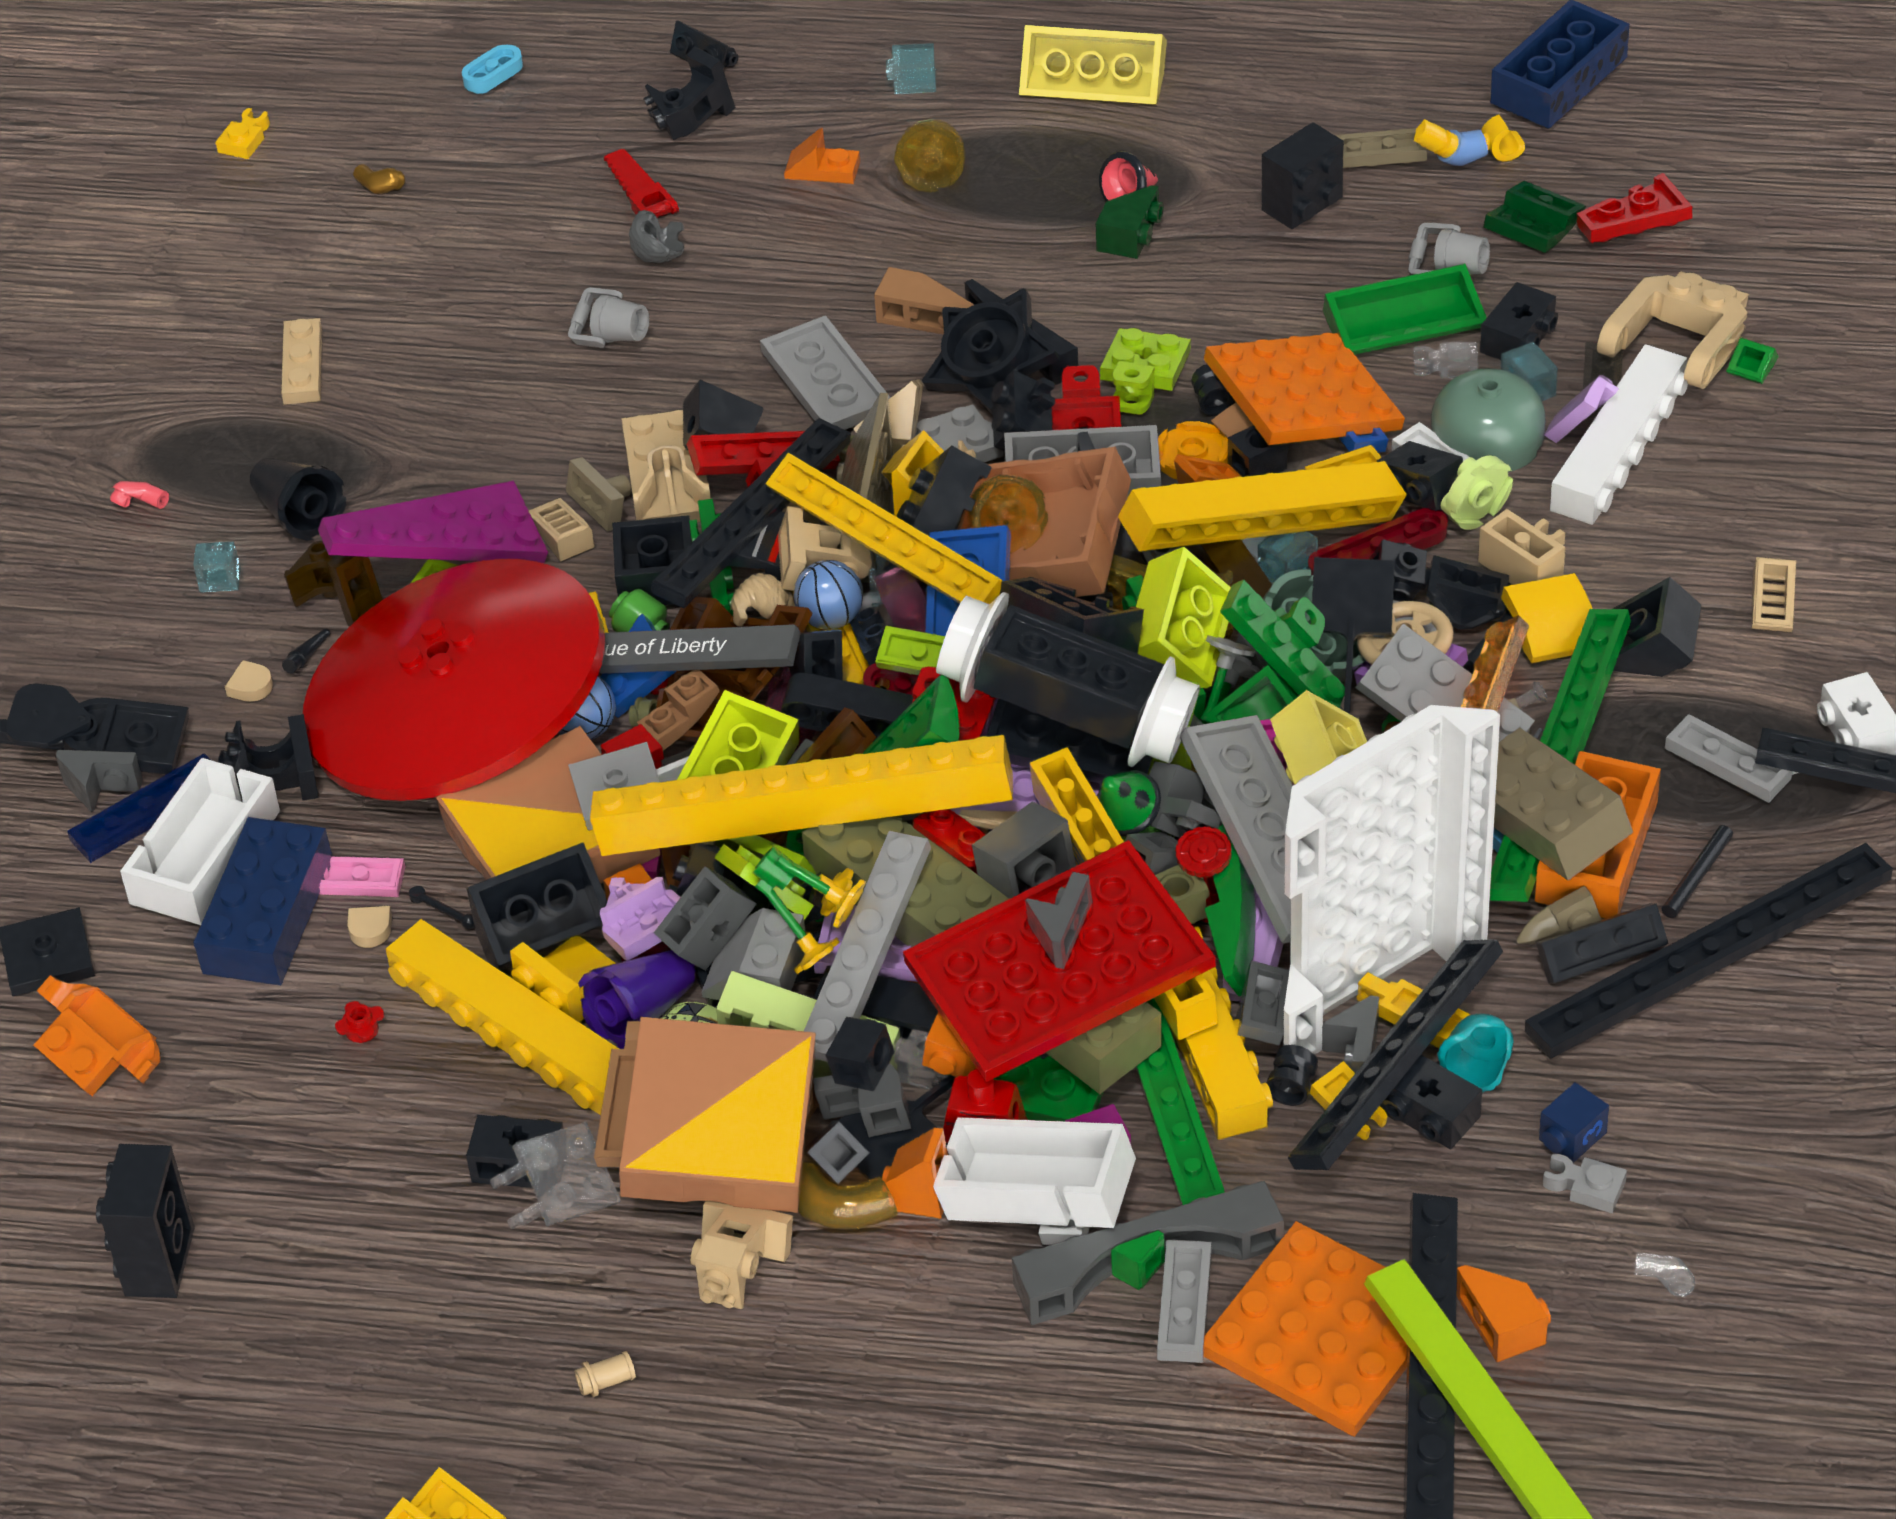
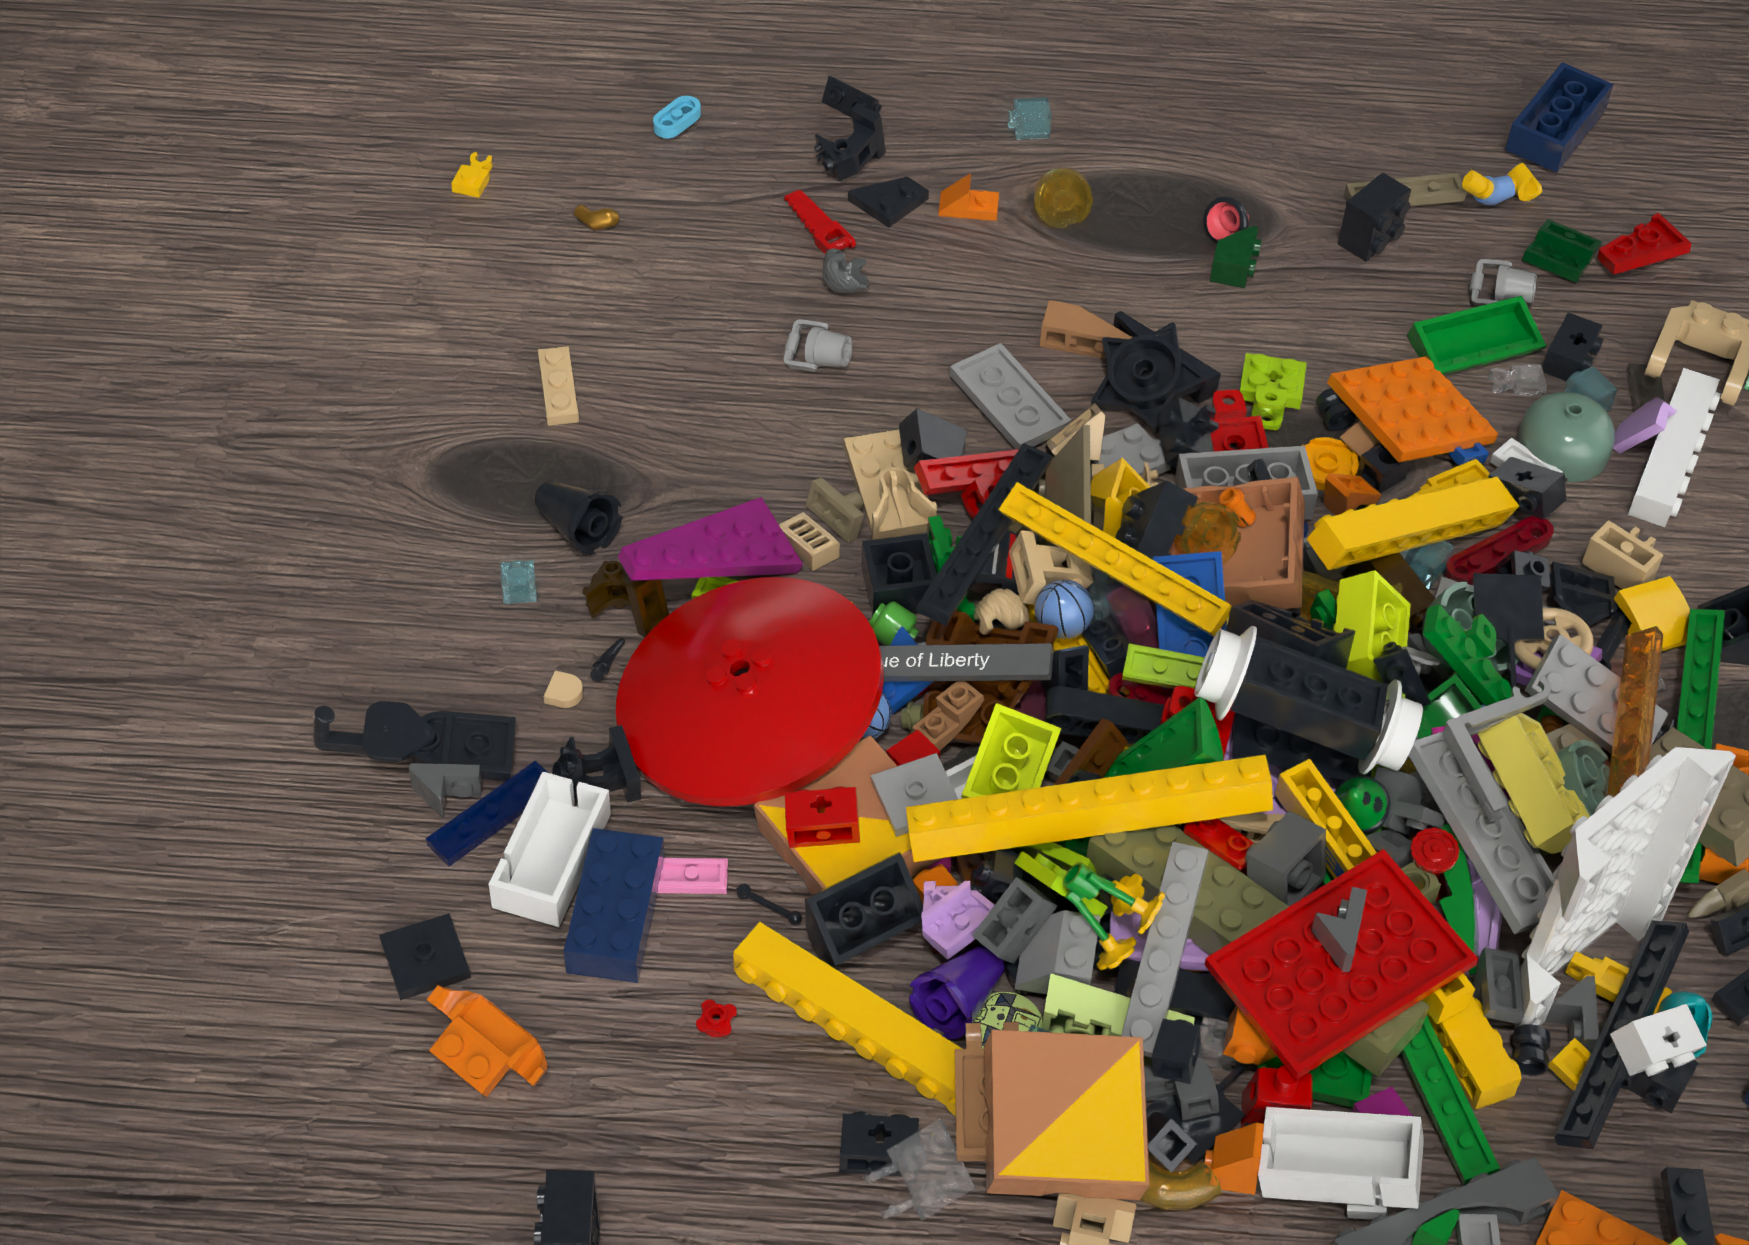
camera: 10 degrees left, 5 degrees up
(140, 490) = (439, 509): coral arm -> none
(369, 925) = (708, 924): tan tile -> none
(504, 807) = (822, 817): none -> red brick
(558, 973) = (890, 969): yellow bracket -> none
(728, 160) = (890, 199): none -> black wing
(1042, 476) = (1235, 500): none -> orange pin
(1092, 65) = (1178, 116): light yellow slope -> none
(1200, 664) = (1398, 665): none -> black hinge
(1269, 704) = (1459, 733): none -> light grey hinge
(1426, 1057) = (1658, 1040): none -> white brick
(1478, 490) = (1577, 503): yellowish green plate -> none

